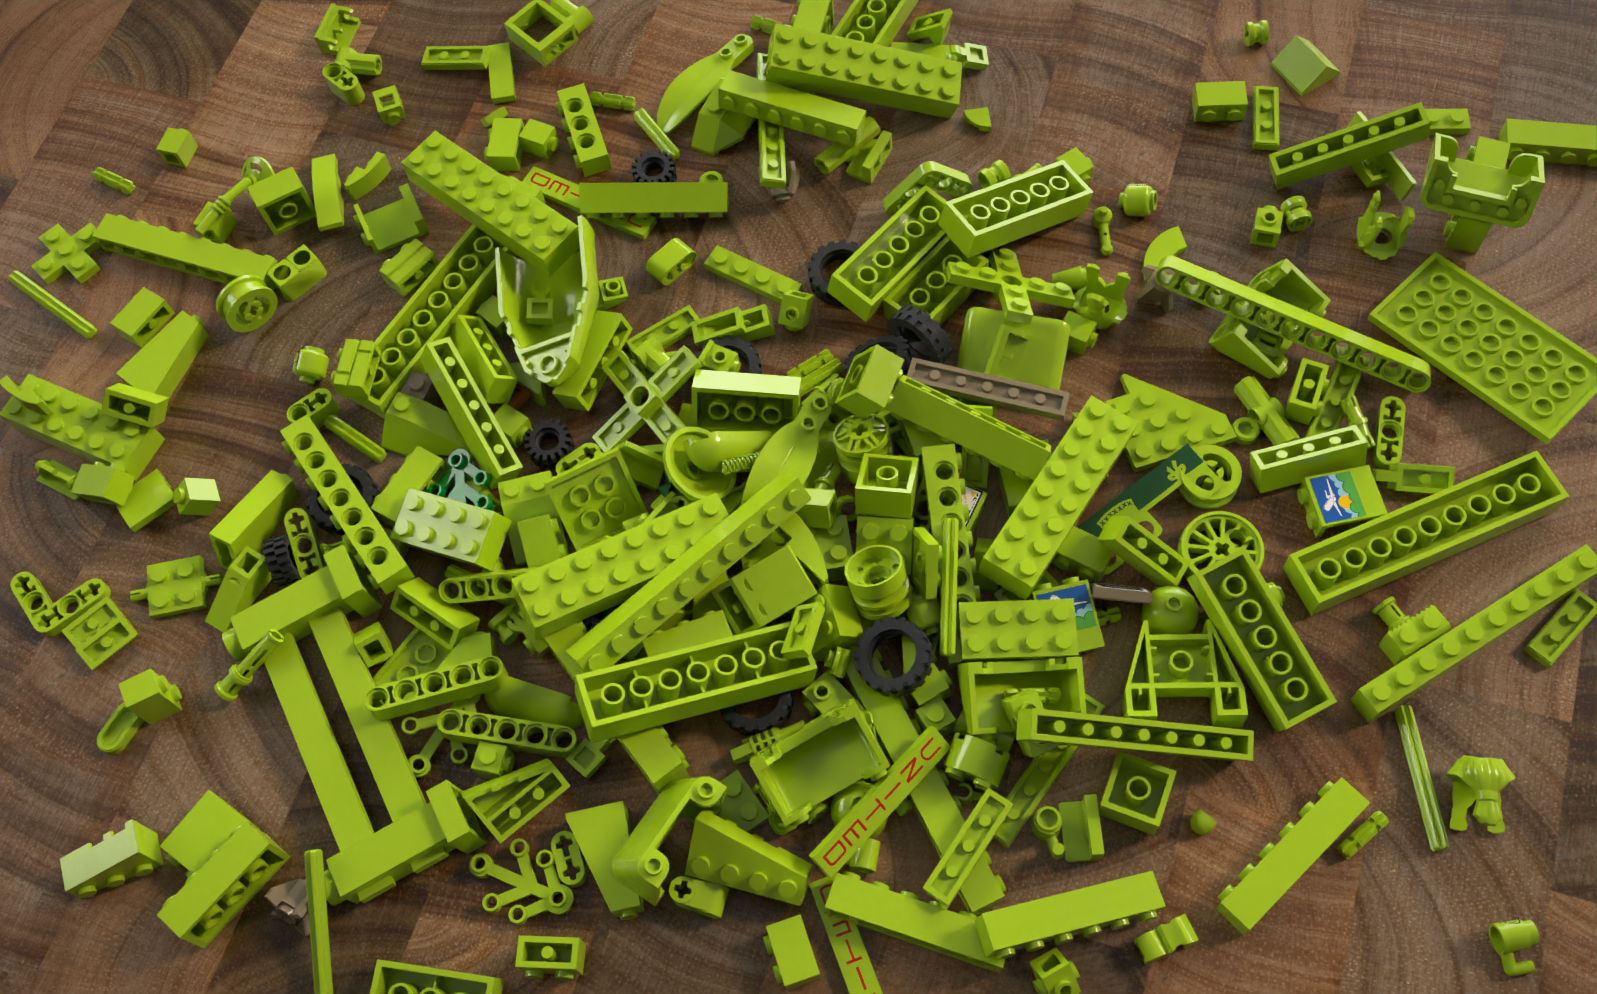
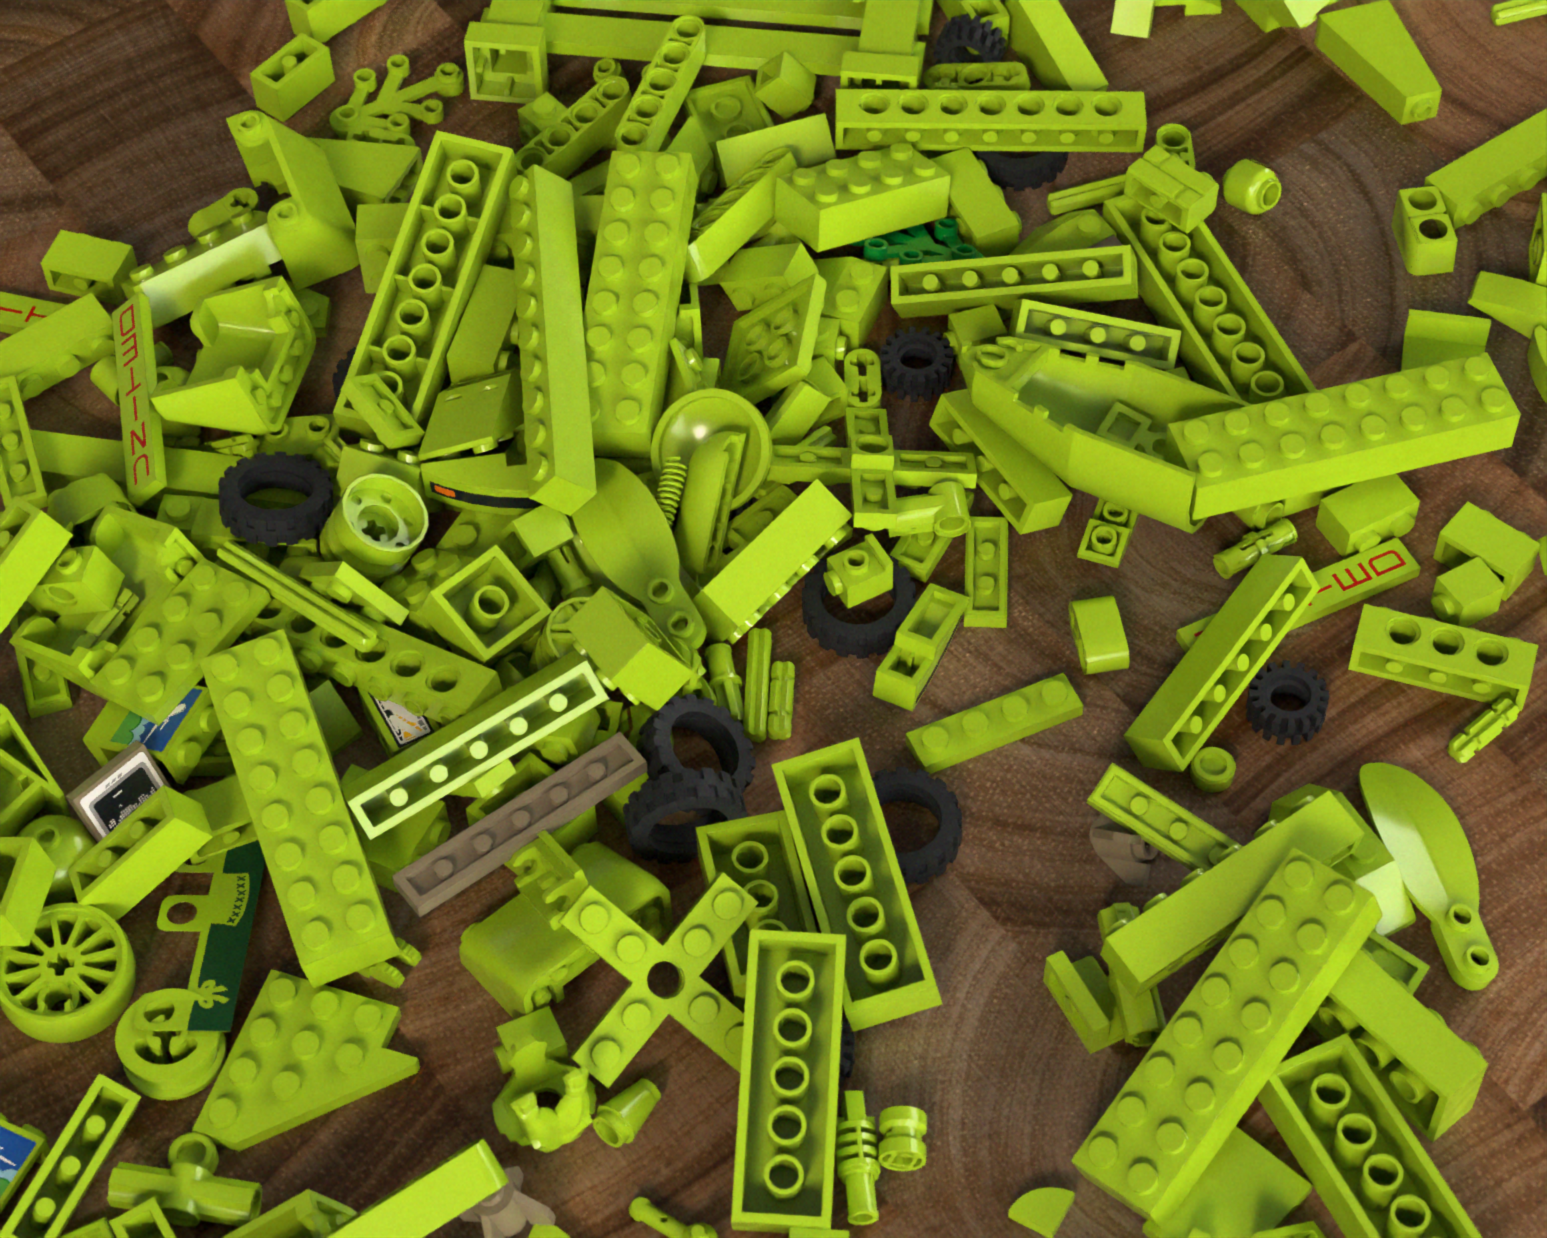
camera: 120 degrees right, 10 degrees down
(142, 317) = (1474, 62): lime brick -> none
(241, 296) = (1398, 149): lime wheel -> none
(409, 267) = (1337, 344): lime brick -> none
(515, 797) = (485, 99): lime wedge -> none
(656, 133) = (1366, 749): lime axle -> none
(759, 741) = (319, 373): lime hinge -> none
(766, 25) = (1495, 1027): lime axle -> none
(795, 309) = (878, 720): lime brick -> none
(956, 185) = (950, 993): lime beam -> none

